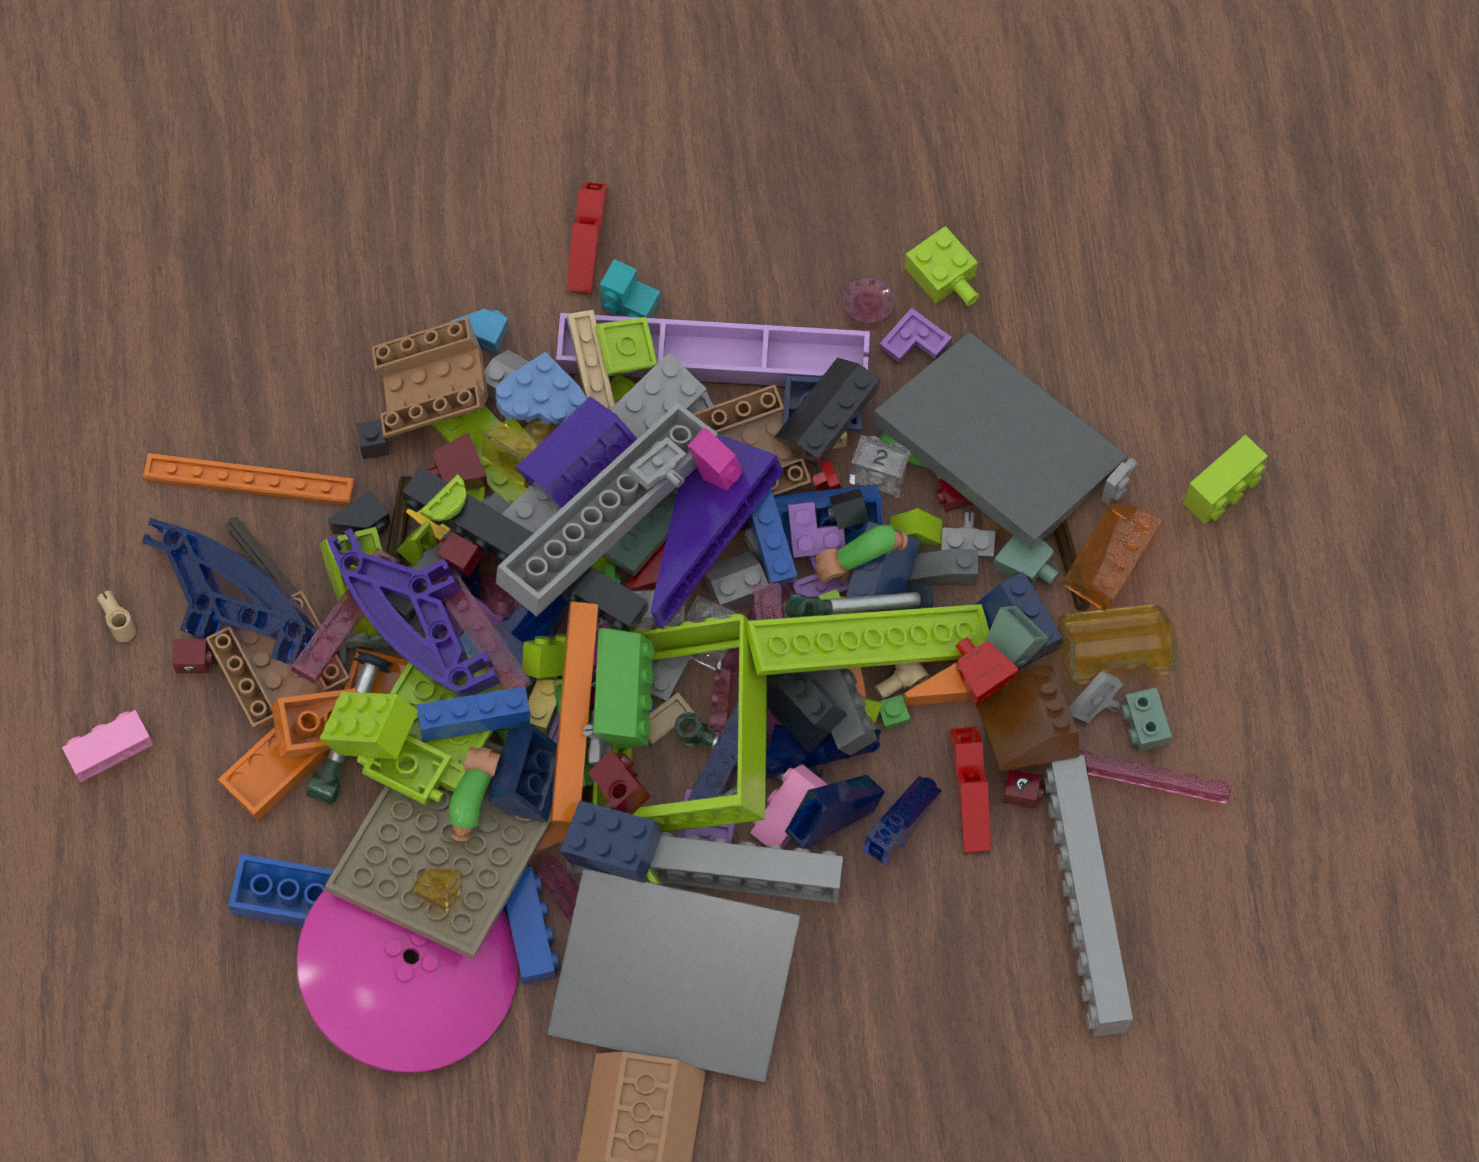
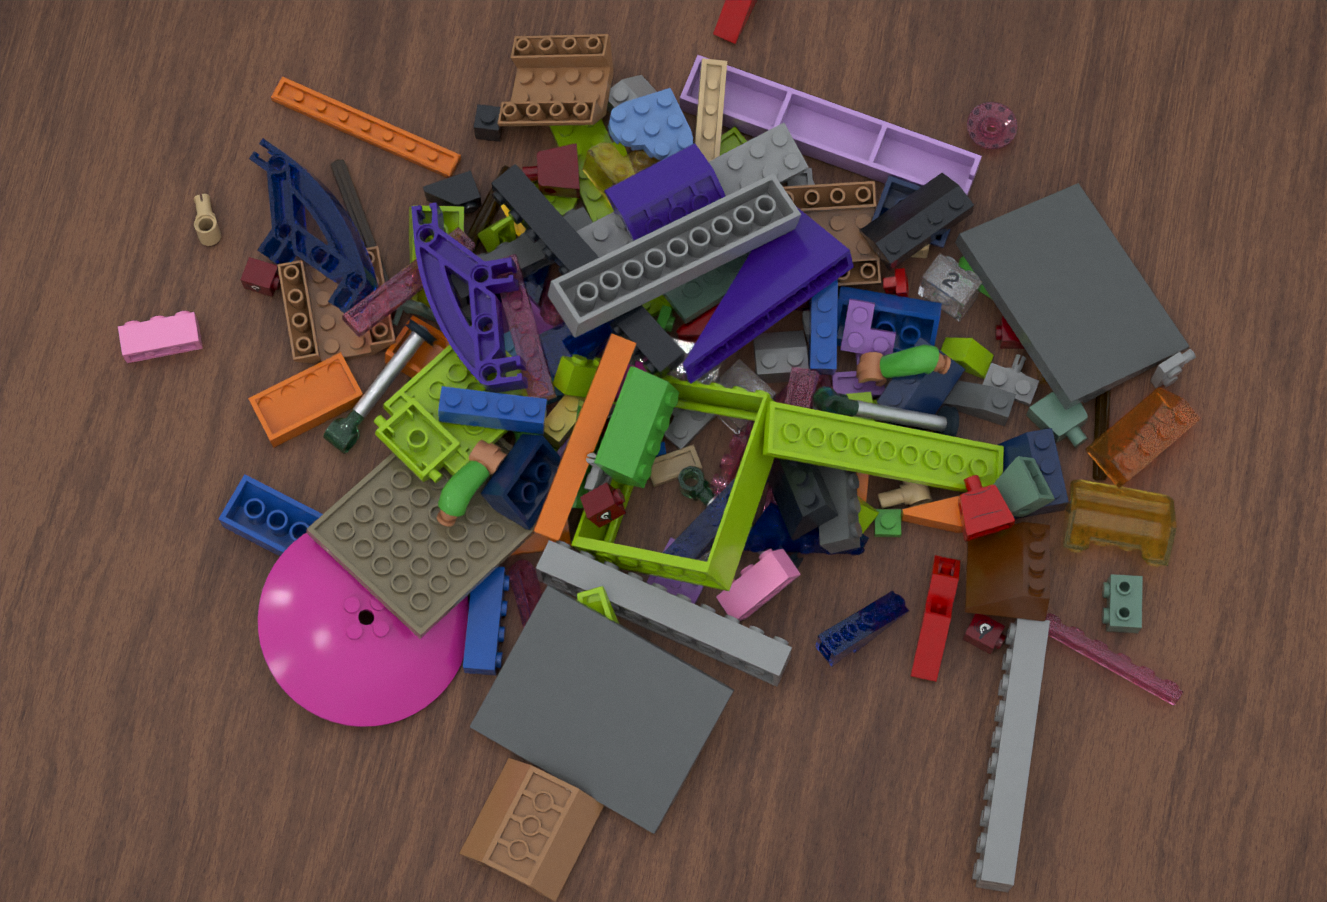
camera: 20 degrees right, 5 degrees up
(301, 722) = (352, 373): orange slope -> none
(369, 725) = (393, 391): lime brick -> none
(439, 886) = (409, 562): clear yellow slope -> none
(447, 501) = (528, 205): lime plate -> none
(459, 553) = (527, 256): dark red brick -> none
(489, 328) = (627, 49): dark azure slope -> none
(611, 841) = (580, 568): dark blue brick -> none
(625, 295) = (765, 55): teal brick -> none
(625, 793) = (607, 528): dark red brick -> none
(626, 346) = (747, 104): lime plate -> none
(659, 464) = (734, 228): light grey plate -> none
(714, 460) = (790, 238): dark pink slope -> none
(833, 808) = (798, 599): clear blue slope -> none
(848, 509) = (904, 319): black brick -> none
(912, 331) = (1024, 167): medium lavender plate -> none
(943, 267) = (1072, 114): lime brick -> none
(1096, 697) = (1082, 568): light grey plate -> none
(1225, 480) = (1275, 397): lime brick -> none

